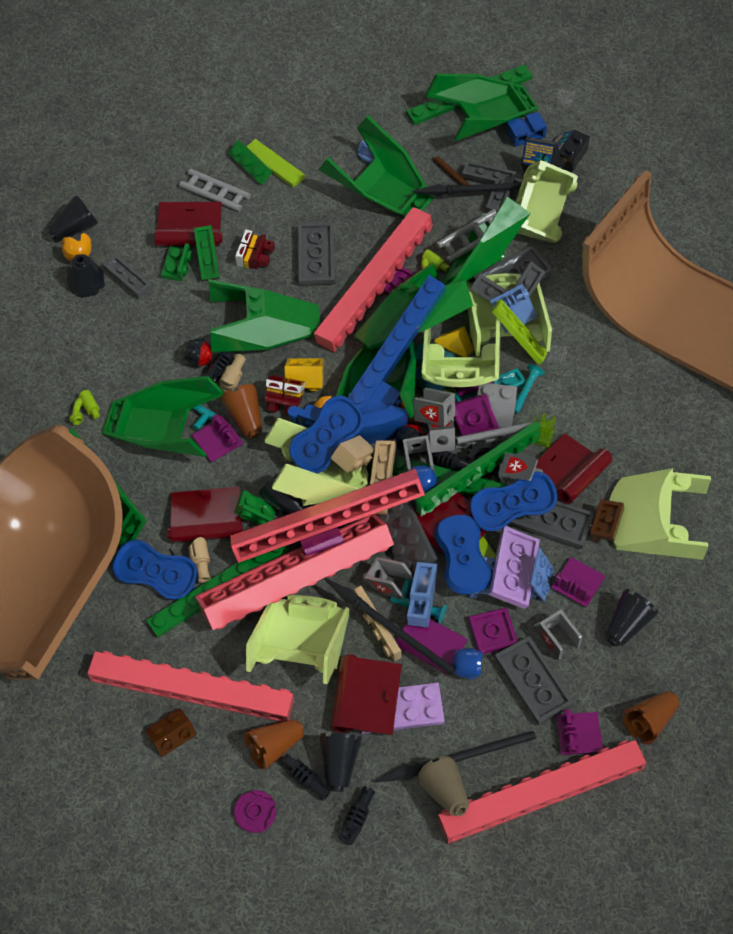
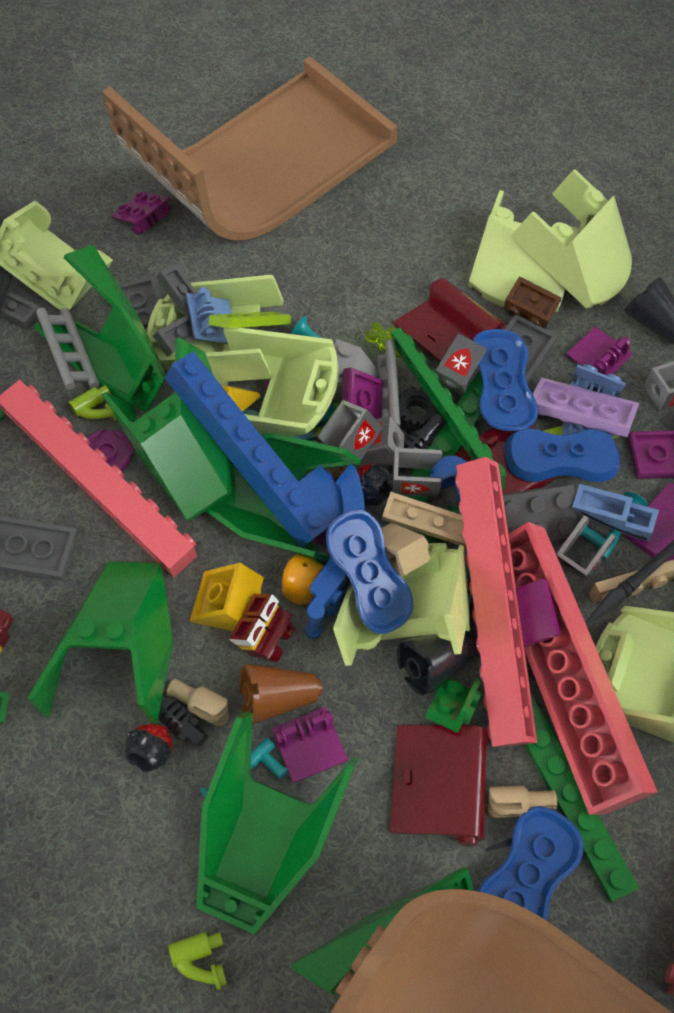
camera: 85 degrees left, 0 degrees up
(667, 560) = (586, 264): none -> yellowish green windscreen

